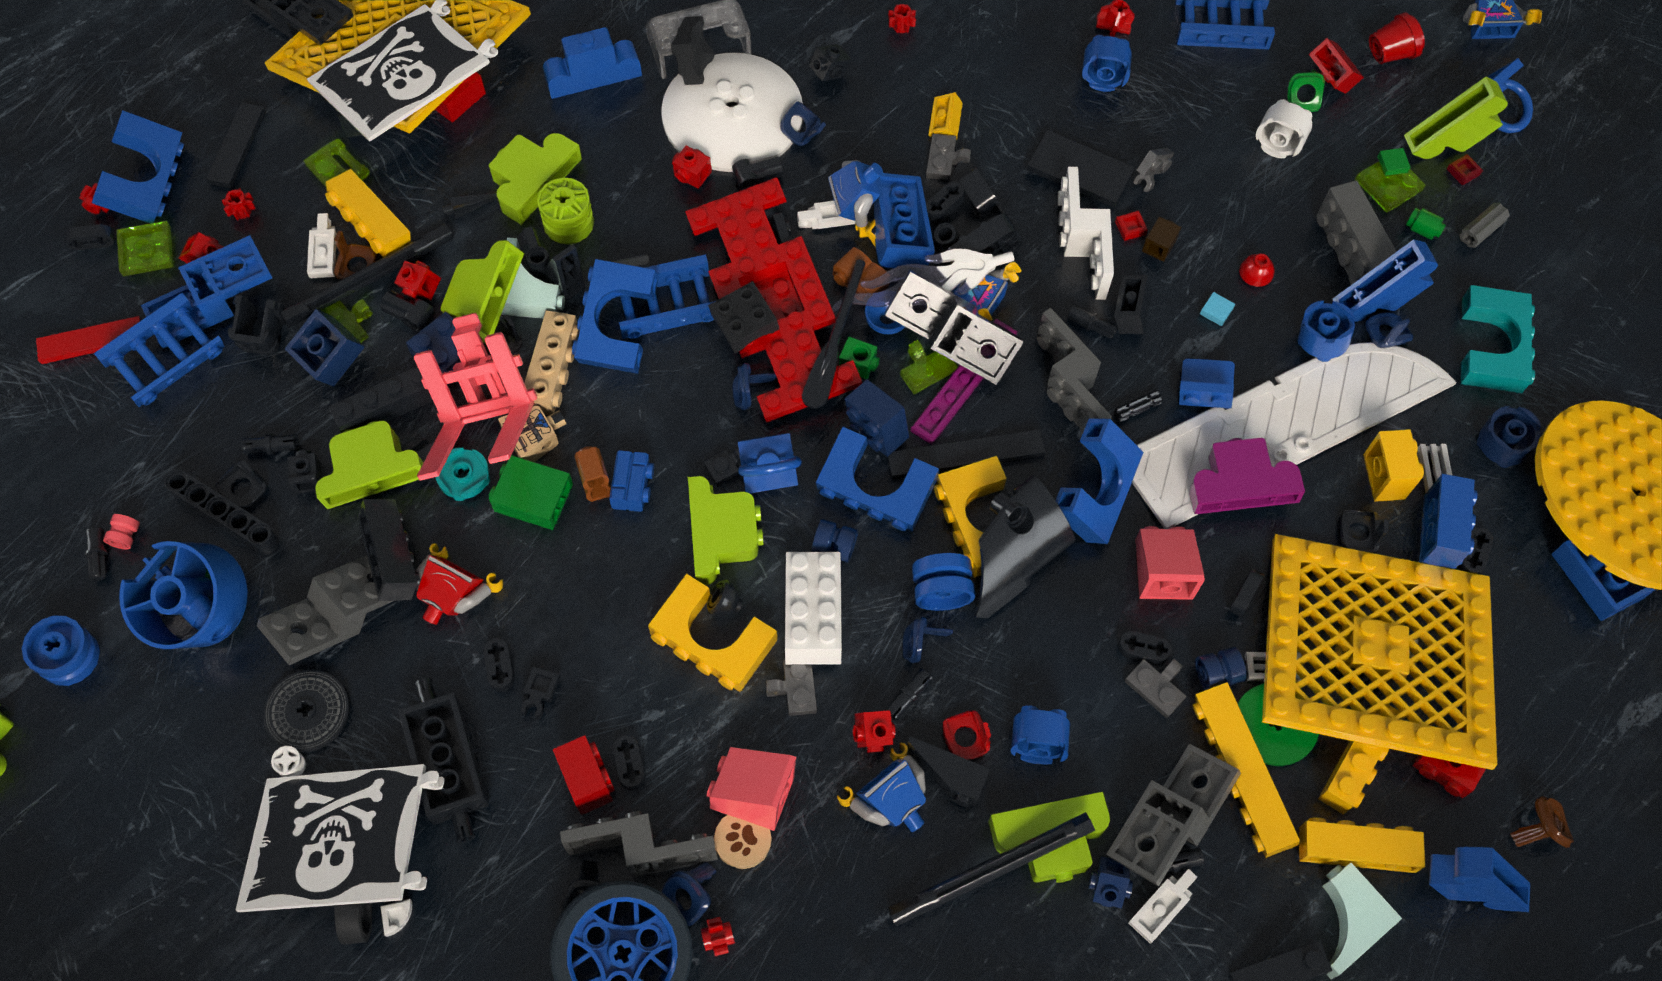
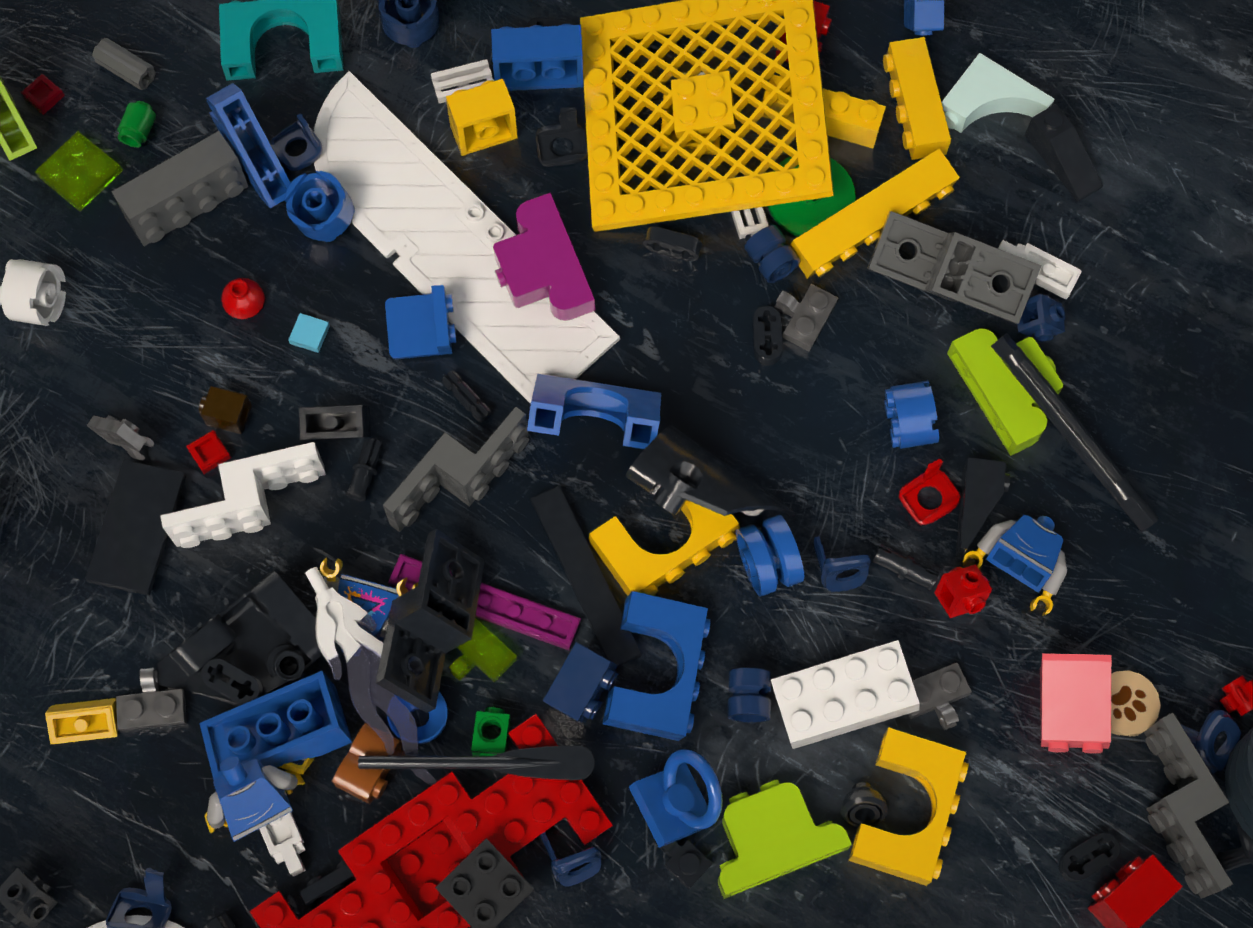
camera: 105 degrees left, 5 degrees up
(1168, 563) = (665, 325): coral slope -> none
(1394, 161) = (56, 165): green tile -> none

